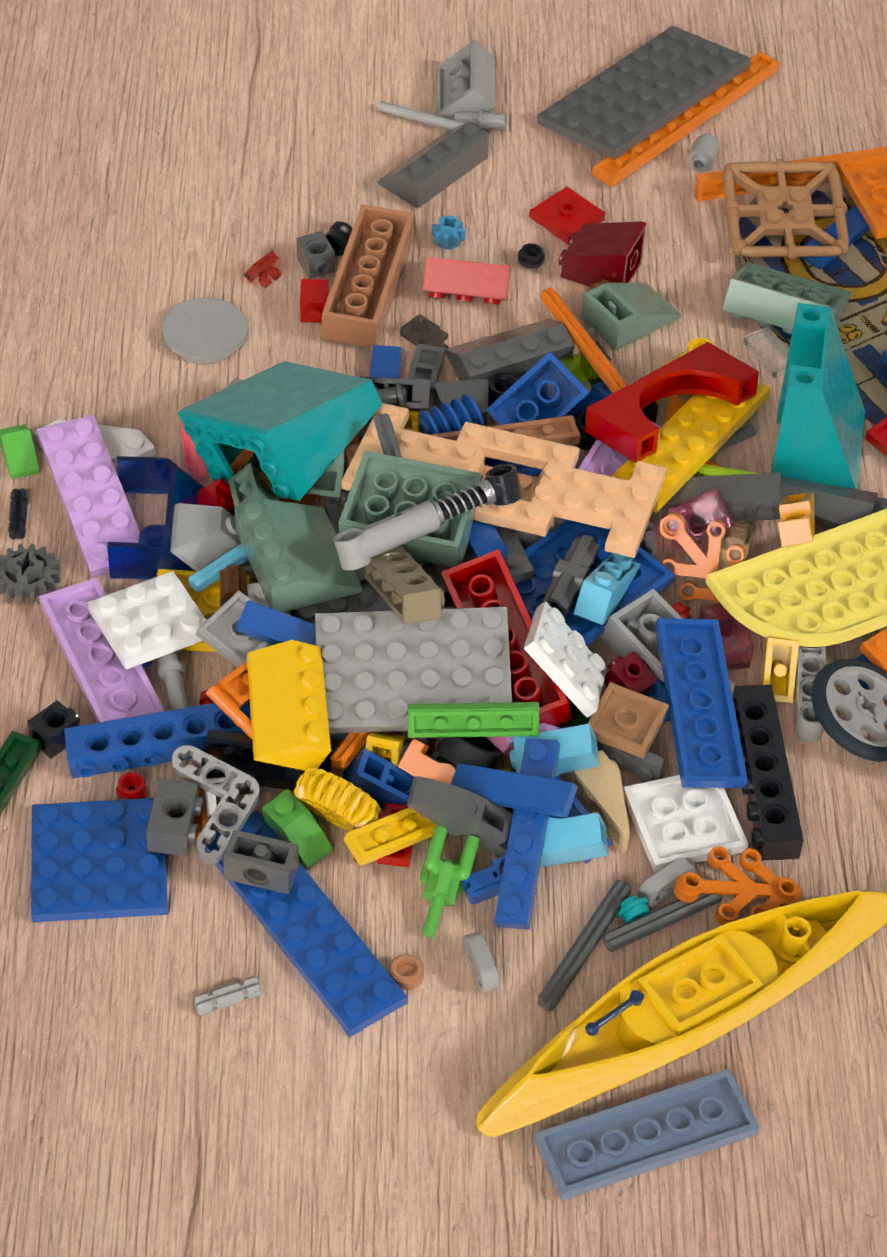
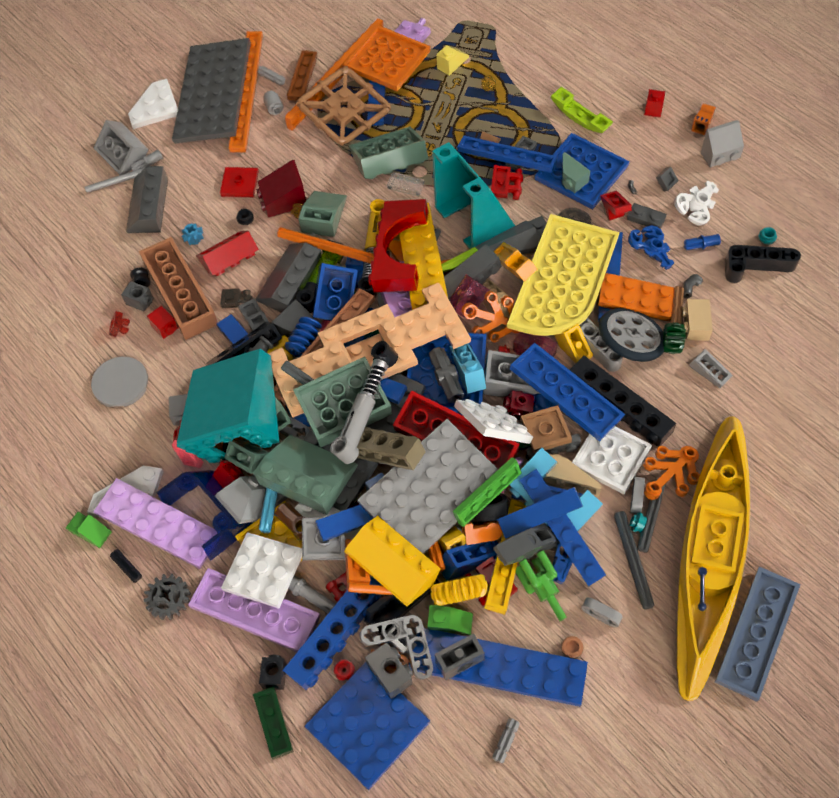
camera: 35 degrees left, 10 degrees up
(557, 66) = (154, 105): none -> white plate
(737, 121) = (271, 75): none -> light grey axle
(780, 143) = (302, 75): none -> dark orange plate

